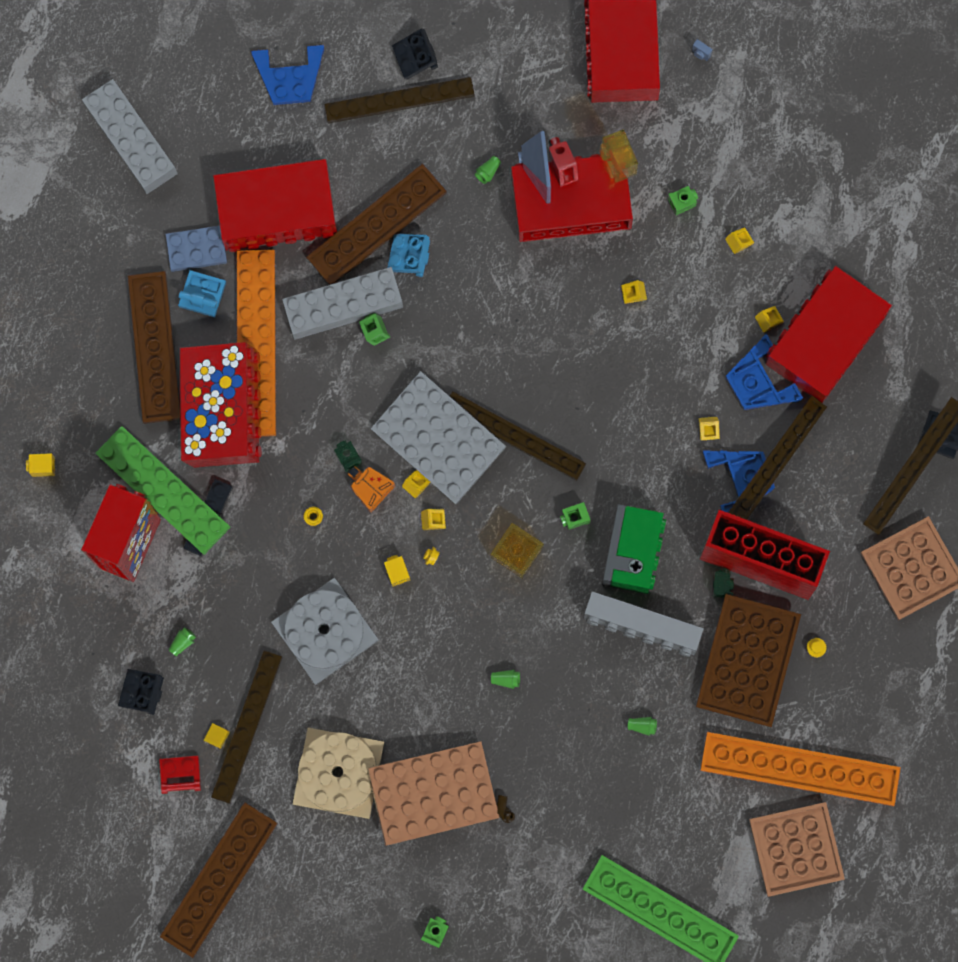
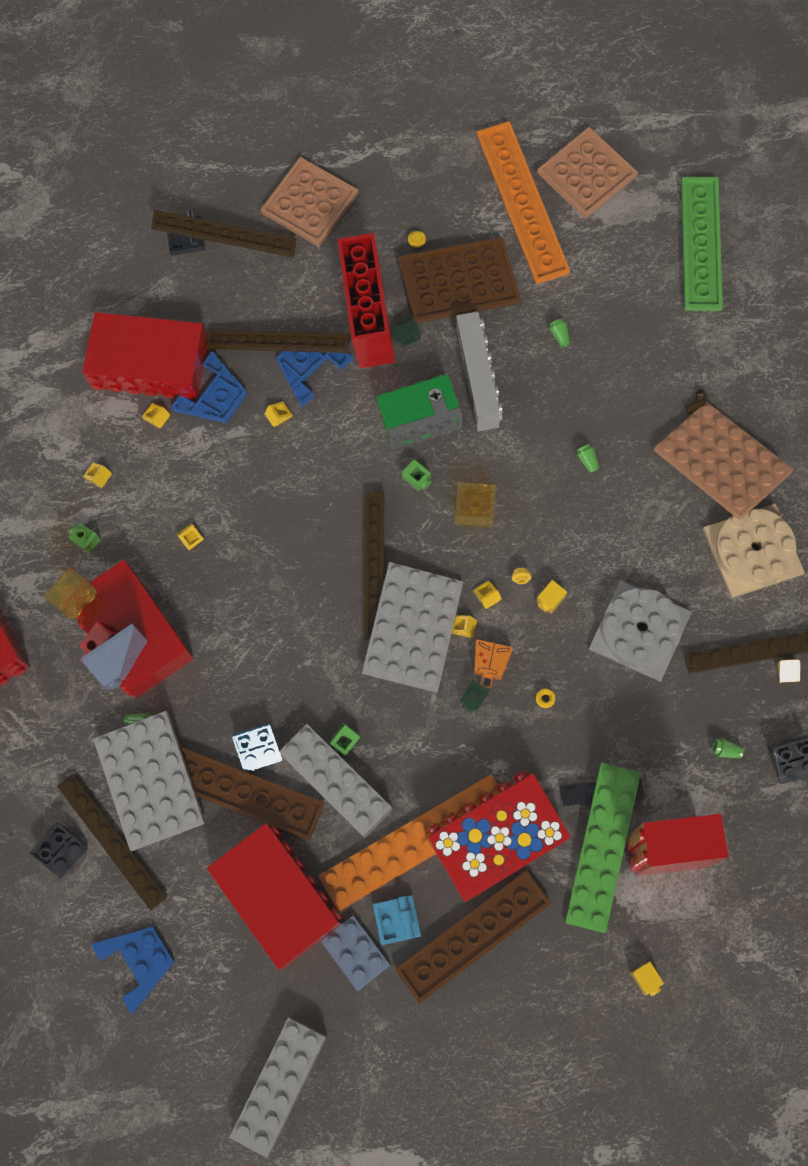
camera: 115 degrees left, 5 degrees down
(430, 152) = (149, 781): none -> light grey plate

